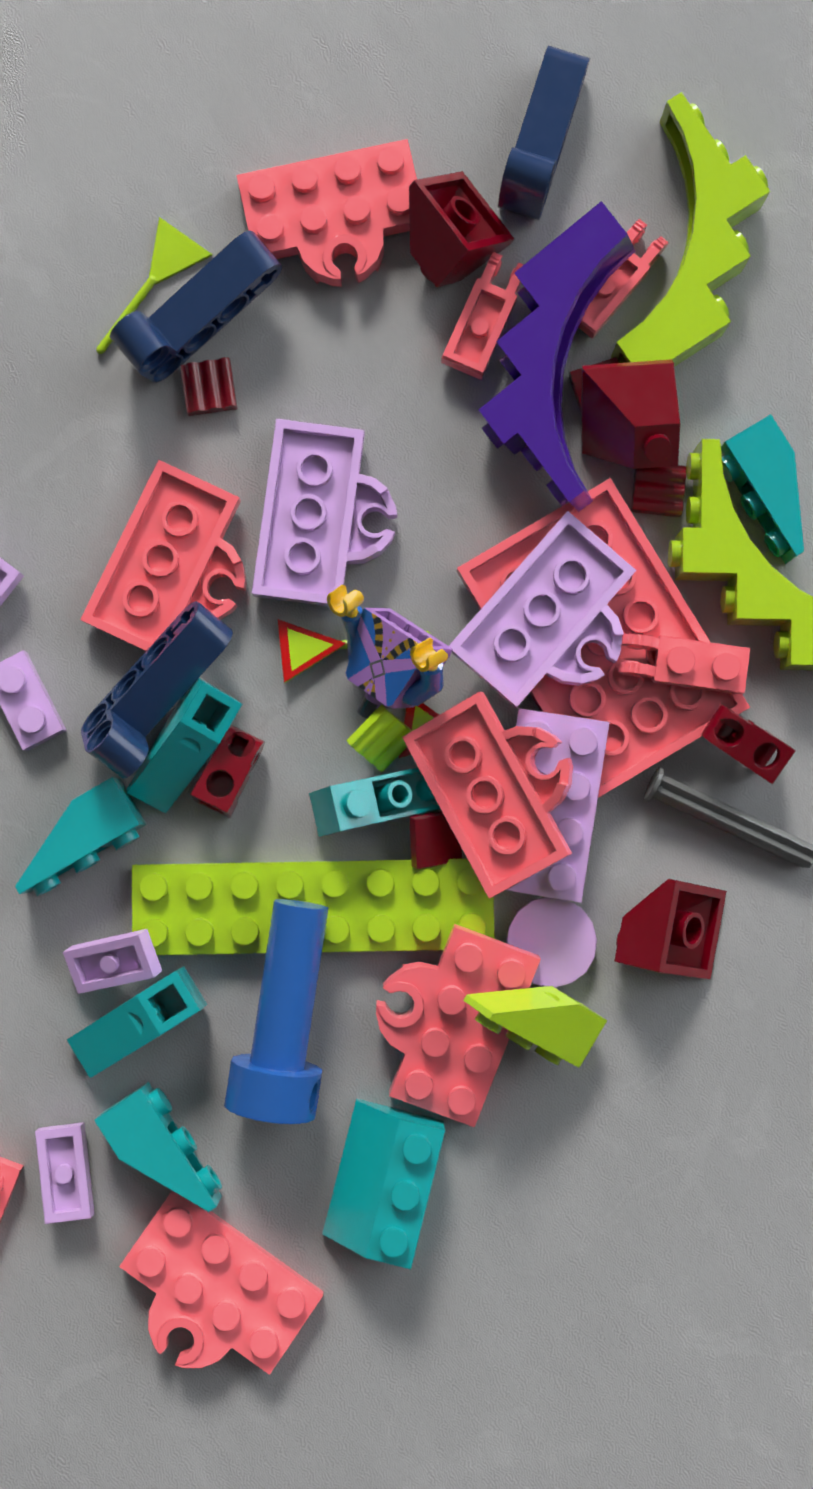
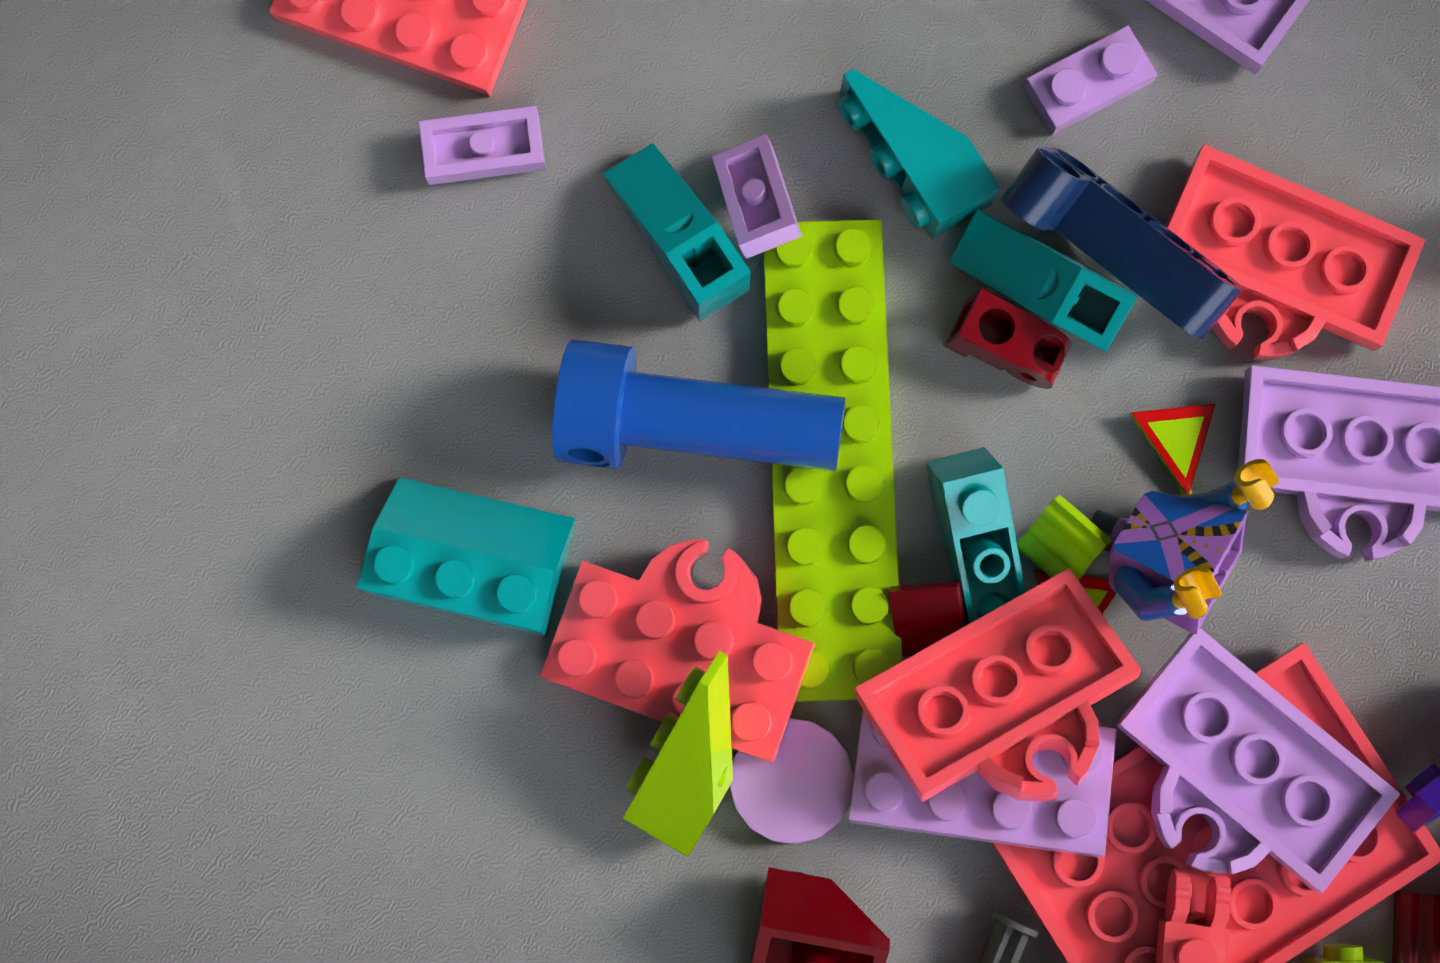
camera: 90 degrees right, 5 degrees down
(152, 1143) = (523, 251): teal slope -> none
(217, 1288) = (333, 341): coral plate -> none

